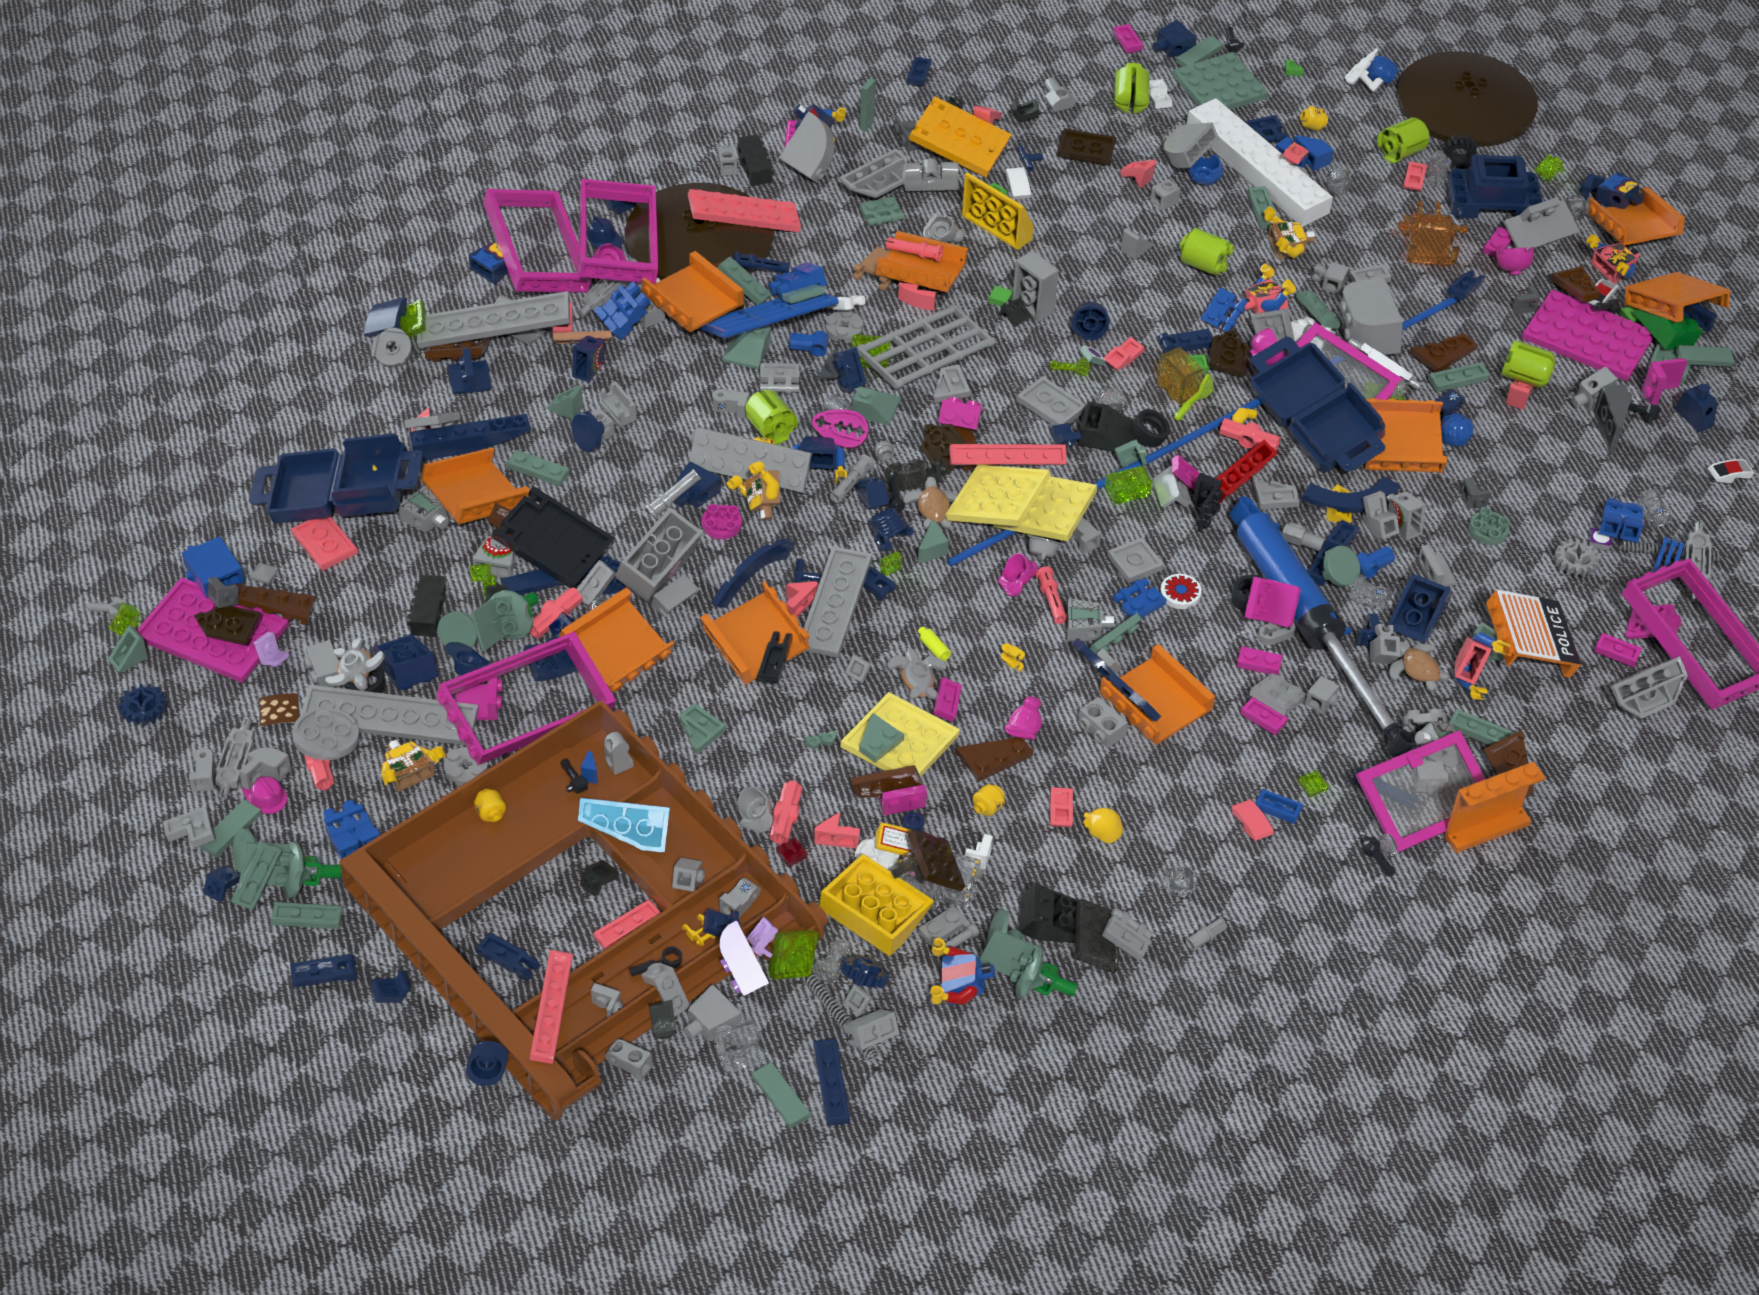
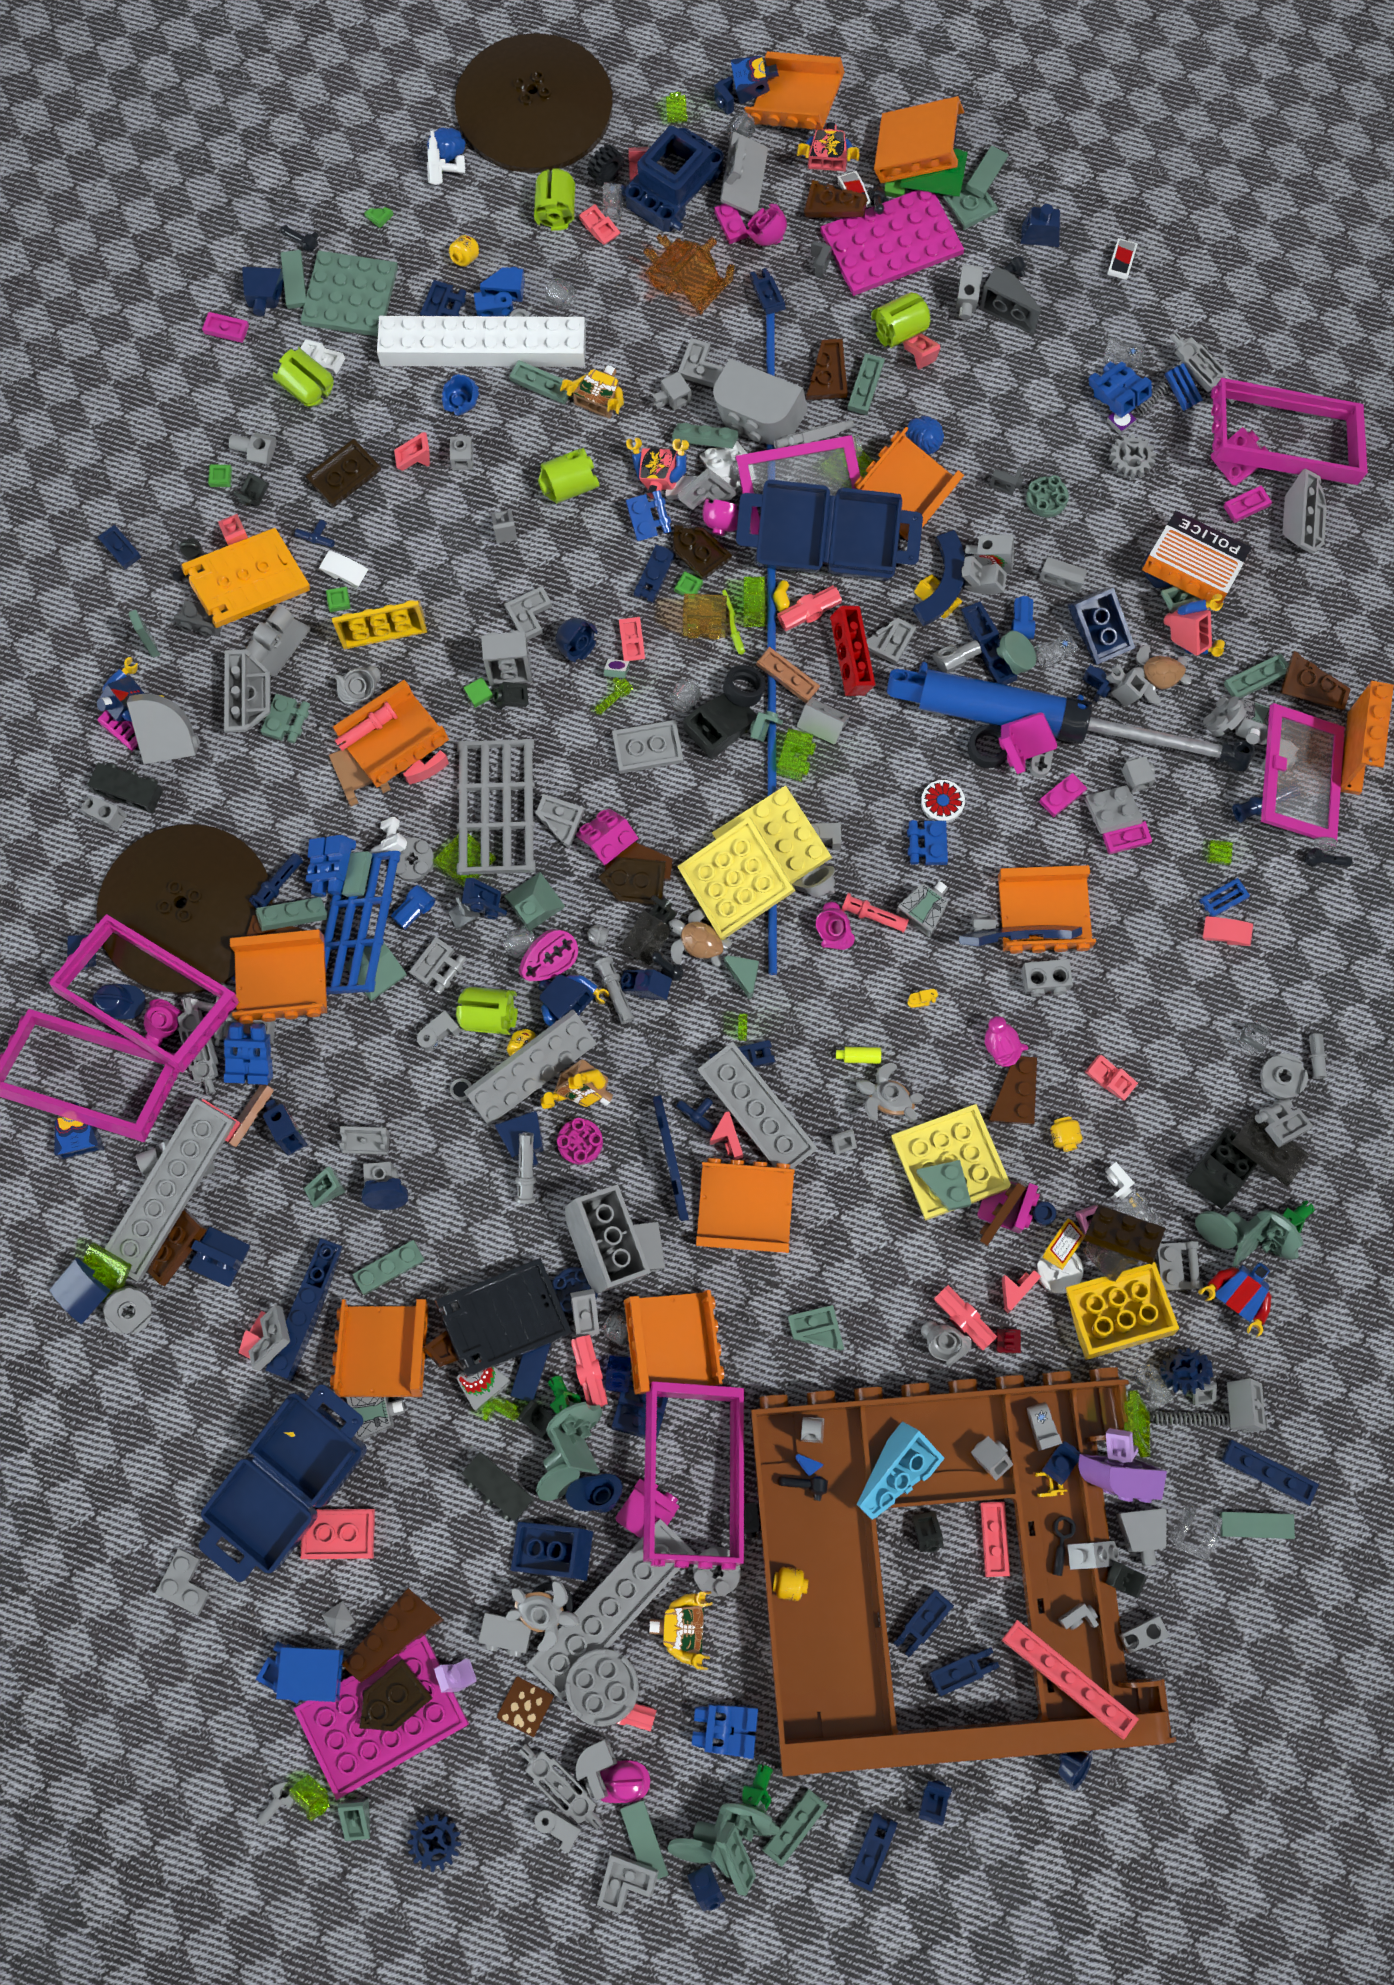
camera: 50 degrees left, 25 degrees up
(220, 594) = (357, 1690): dark grey bracket -> none
(223, 475) = (177, 1585): none -> light grey plate
(525, 911) = (925, 1621): none -> dark blue hinge
(744, 210) = (197, 850): coral plate -> none
(774, 659) = (790, 1211): black hinge -> none
(824, 738) = (897, 1235): sand green piece -> none
(887, 525) = (703, 1002): dark blue piece -> none
(947, 699) = (932, 1089): dark pink plate -> none
(1007, 454) = (690, 834): coral tile -> none
(1021, 92) = (220, 476): none -> bright green tile
(1063, 435) = (699, 766): dark blue bracket -> none
(1085, 285) = (524, 608): none -> light grey plate
(1104, 824) = (1152, 1056): yellow hair -> none
(1116, 635) = (958, 896): sand green plate -> none
(1135, 560) = (884, 813): light grey plate -> none
(1166, 930) = (1272, 1082): none -> light grey plate
(1184, 471) = (822, 697): dark pink plate -> none
(1186, 443) = (788, 675): none -> nougat tile
(1189, 143) = (419, 385): light grey brick -> none
(1207, 497) = (868, 696): black bracket -> none
(1221, 400) = (754, 602): none -> clear neon green brick
(1295, 153) = (509, 305): coral plate -> none
(1452, 402) = (891, 418): dark blue leg -> none
(1663, 376) = (994, 234): dark pink bracket -> none

